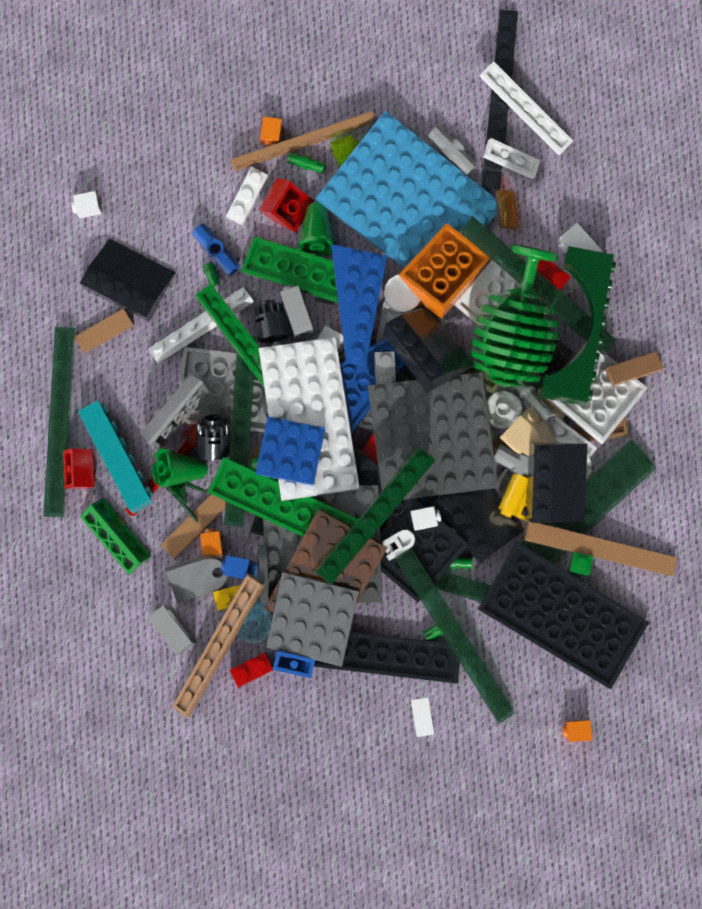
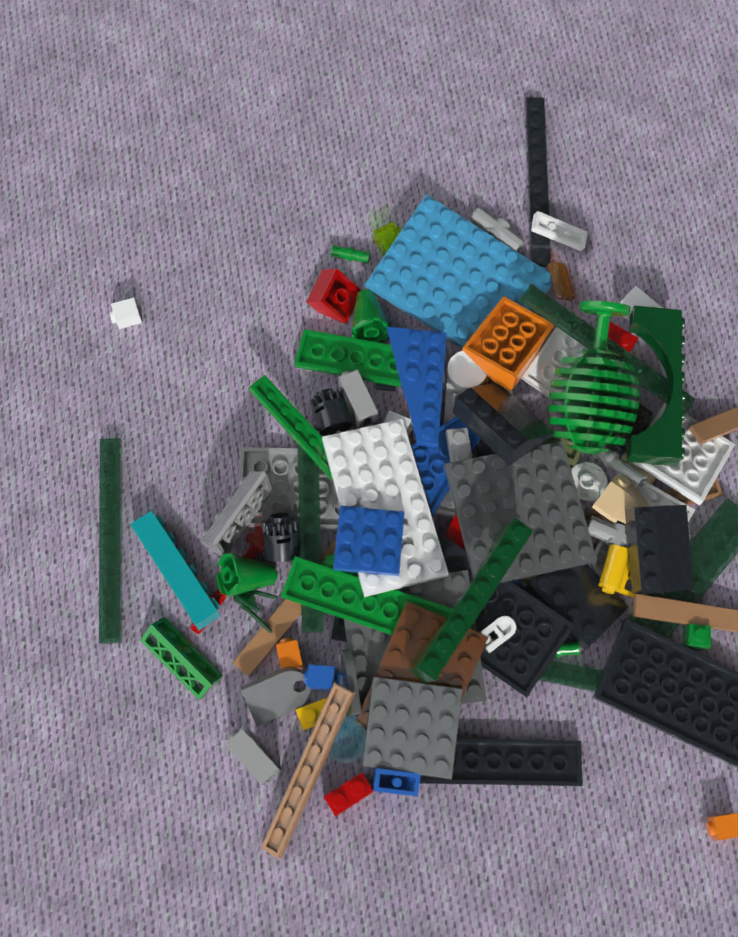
camera: 10 degrees left, 10 degrees down
(79, 468) = (135, 586): red brick -> none
(103, 331) = (152, 439): medium nougat tile -> none
(127, 279) = (174, 385): black slope -> none
(196, 328) = (250, 428): white plate -> none
(208, 241) = (257, 338): blue piece -> none
(211, 274) = (261, 368): green pin -> none
(247, 196) = (292, 292): white plate -> none
(271, 131) = (311, 226): orange brick -> none
(302, 141) = (344, 233): medium nougat tile -> none
(422, 717) = (547, 829): white sticker -> none
(425, 518) = (525, 600): white brick -> none
(434, 630) = (549, 727): green pin -> none
(454, 636) = (573, 732): clear green plate -> none
(526, 108) = (566, 183): white plate -> none

